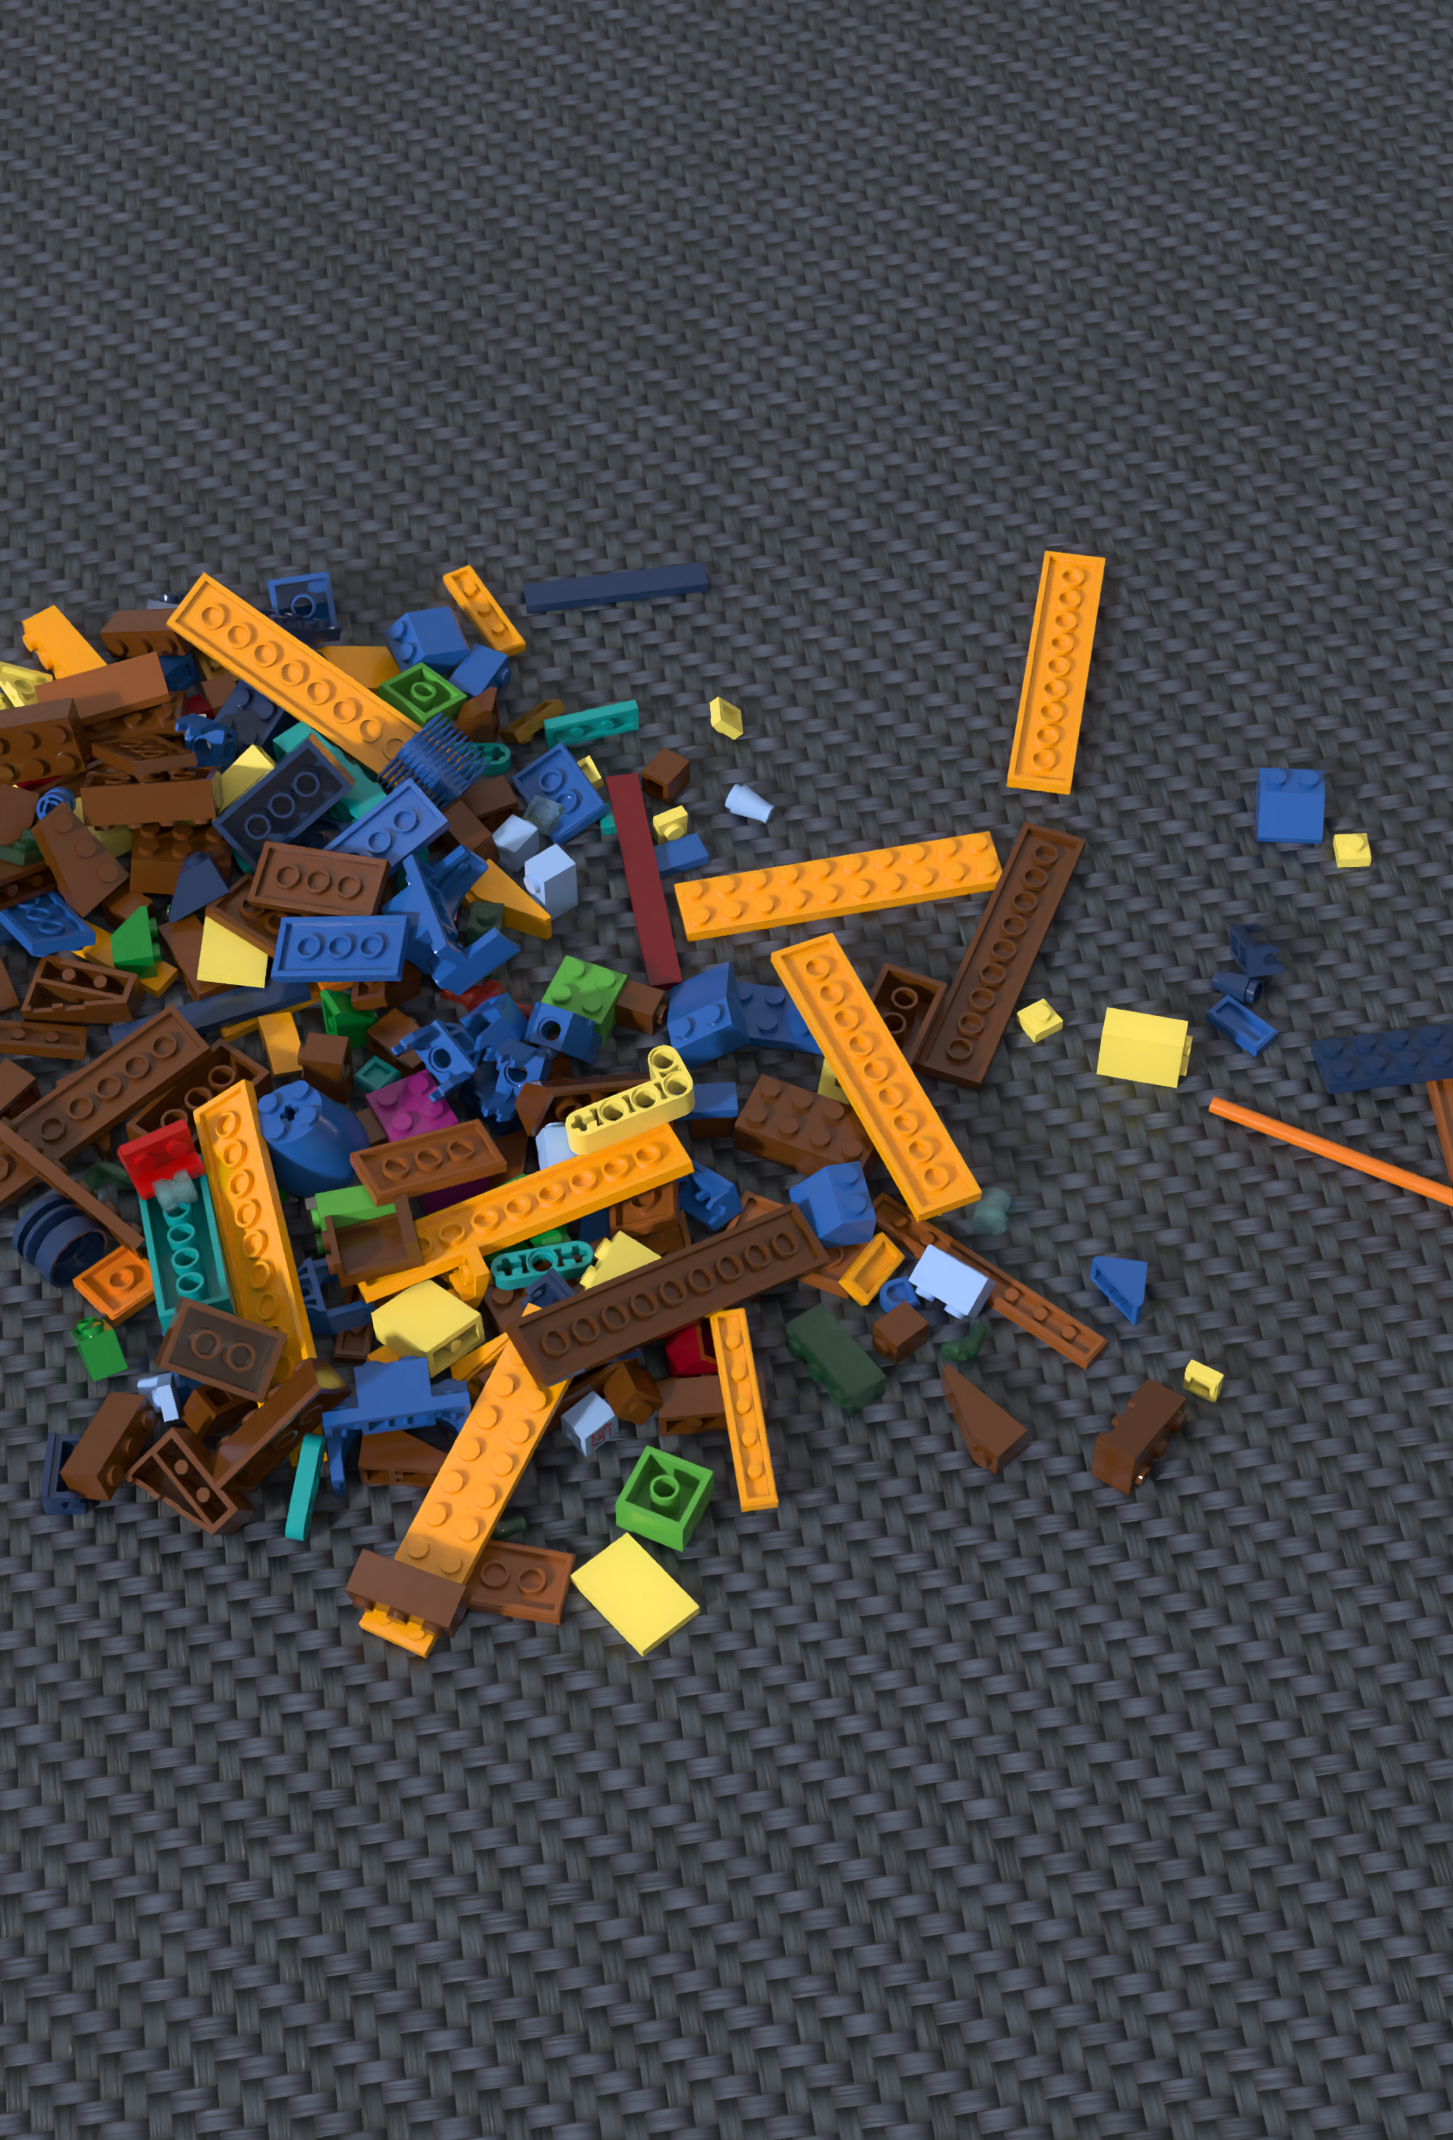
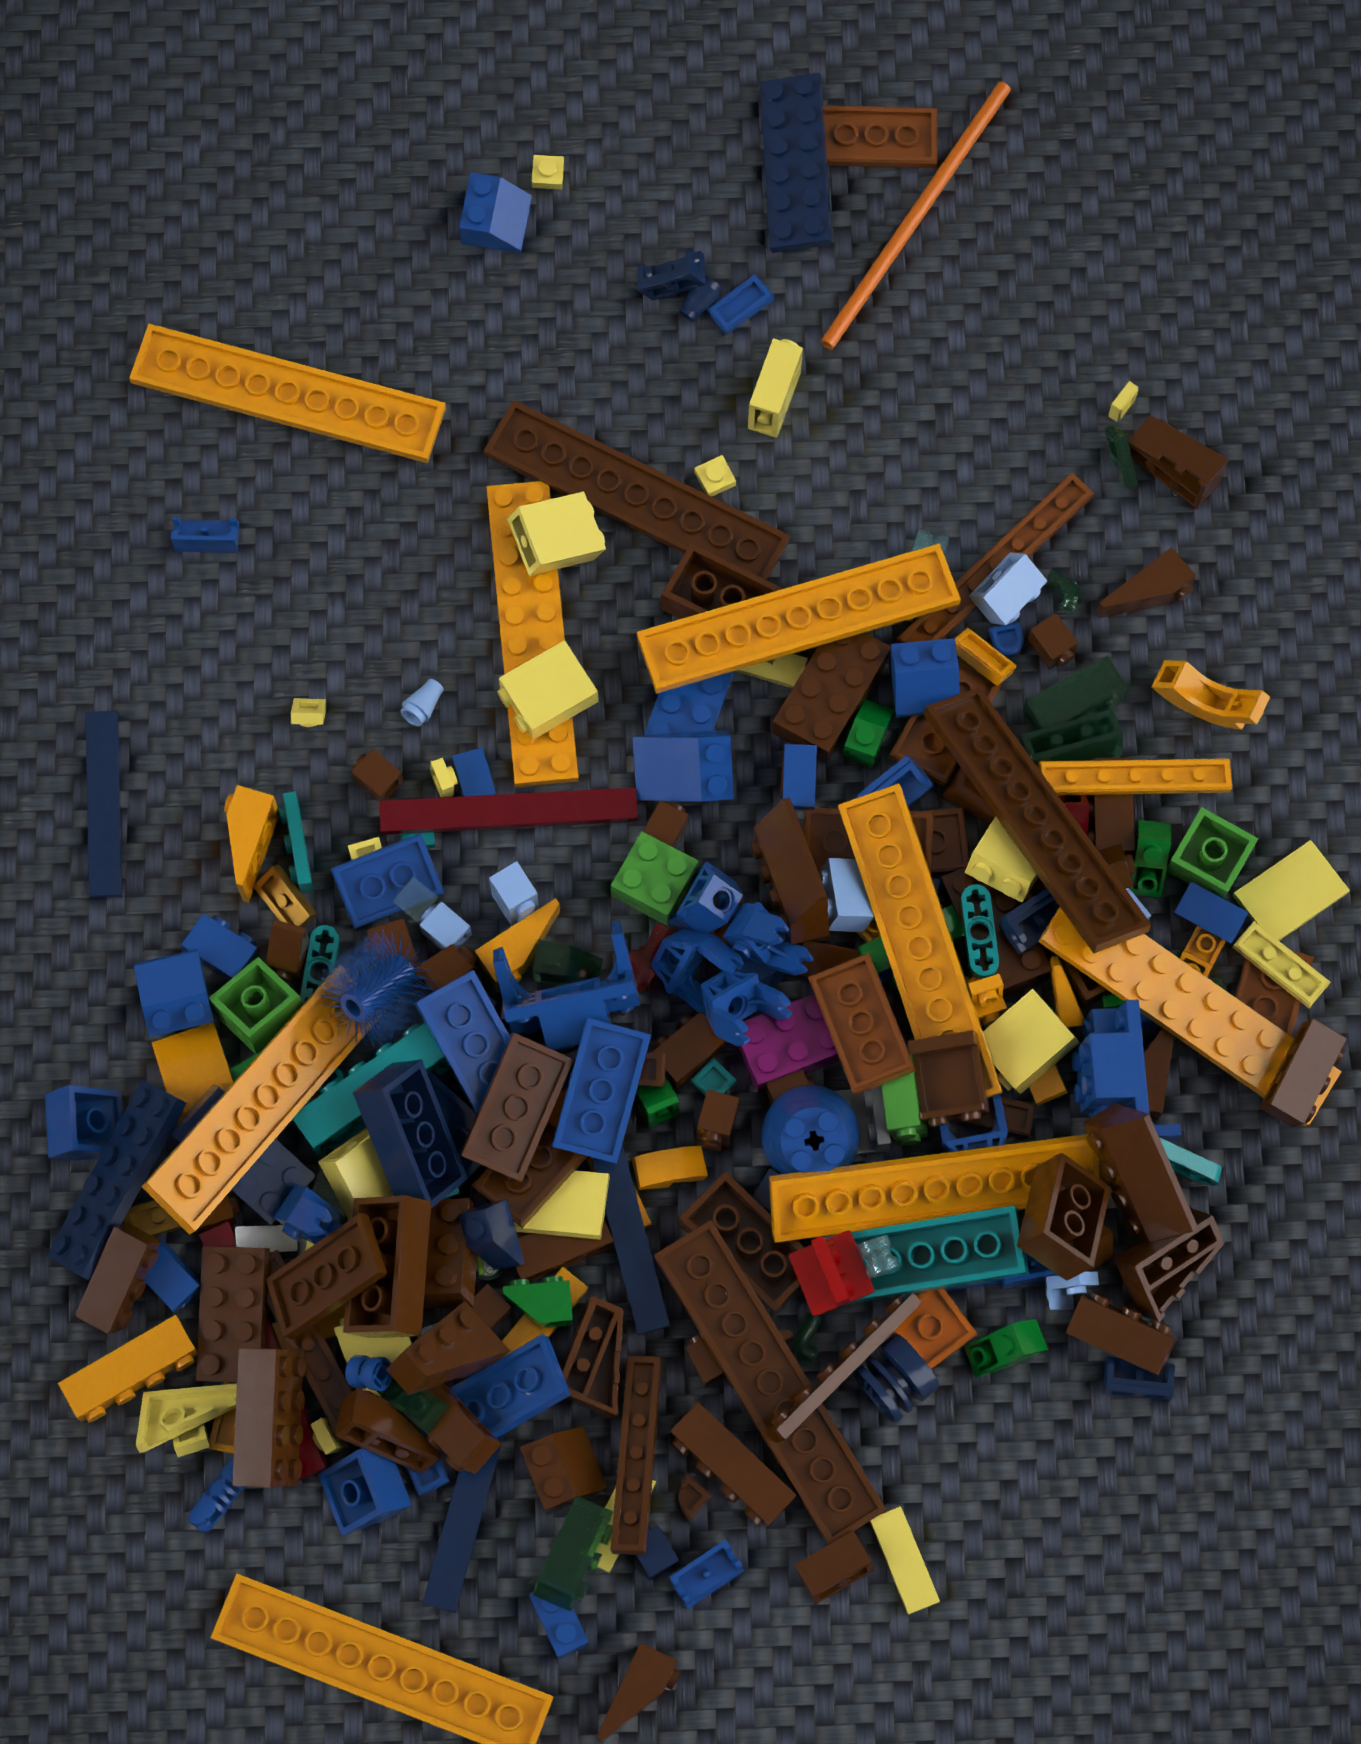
camera: 85 degrees left, 20 degrees up
(111, 688) = (203, 1326): dark orange tile -> none
(484, 611) = (117, 940): light orange tile -> none
(543, 1581) = (1281, 964): none -> light yellow tile
(547, 1506) = (1202, 950): none -> light orange slope
(582, 676) = (251, 825): none -> light orange slope
(592, 1126) = (830, 832): light yellow beam -> none
(593, 1510) = (1211, 912): none -> blue hinge
(664, 1432) = (1150, 857): none -> green slope
(767, 1170) = (867, 733): none -> green slope
(769, 888) = (547, 690): none -> light yellow brick
(779, 1354) = (1076, 740): none -> clear green brick
(857, 1481) = (1206, 699): none -> light orange arch
(897, 626) = (205, 535): none -> blue hinge
(941, 880) = (556, 533): none -> light yellow brick
(1122, 1283) = (1021, 447): blue slope -> none
(1133, 1381) = (1121, 454): none -> clear green tile

